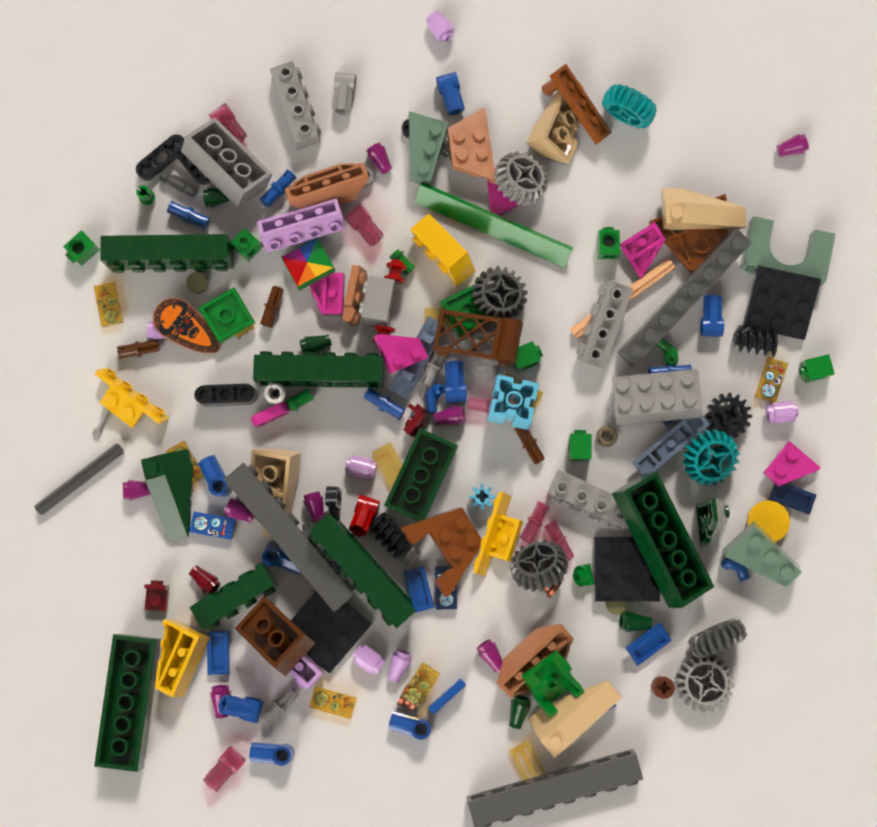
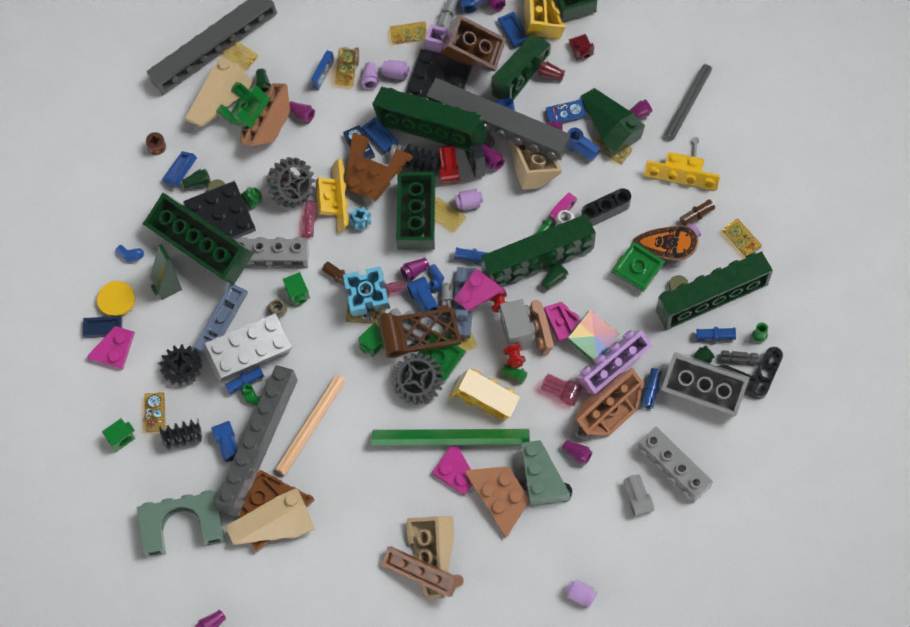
camera: 155 degrees right, 15 degrees down
(89, 251) = (789, 275): green brick -> none
(228, 120) = (730, 426): clear pink piece -> none
(246, 244) = (653, 328): green brick -> none
(272, 306) = (605, 291): reddish brown axle -> none
(407, 724) = (341, 39): blue piece -> none
(417, 421) = (440, 257): dark red bracket -> none
(450, 90) = (545, 540): blue piece -> none
(530, 187) = (438, 496): light grey gear -> none
(558, 538) = (283, 213): clear pink axle -> none
(604, 251) = (338, 456): green brick -> none
(604, 323) = (317, 390): light grey brick -> none
(629, 106) = (374, 587): teal gear -> none
(643, 248) = (310, 472): dark pink wing -> none
(717, 638) = (125, 189): dark grey gear -> none
(722, 457) = (183, 321): teal gear -> none
(722, 690) = (115, 153): light grey gear -> none
(763, 555) = (111, 266): sand green wedge -> none
(781, 302) = (169, 475): black plate -> none
(781, 412) = (136, 387): lavender brick -> none

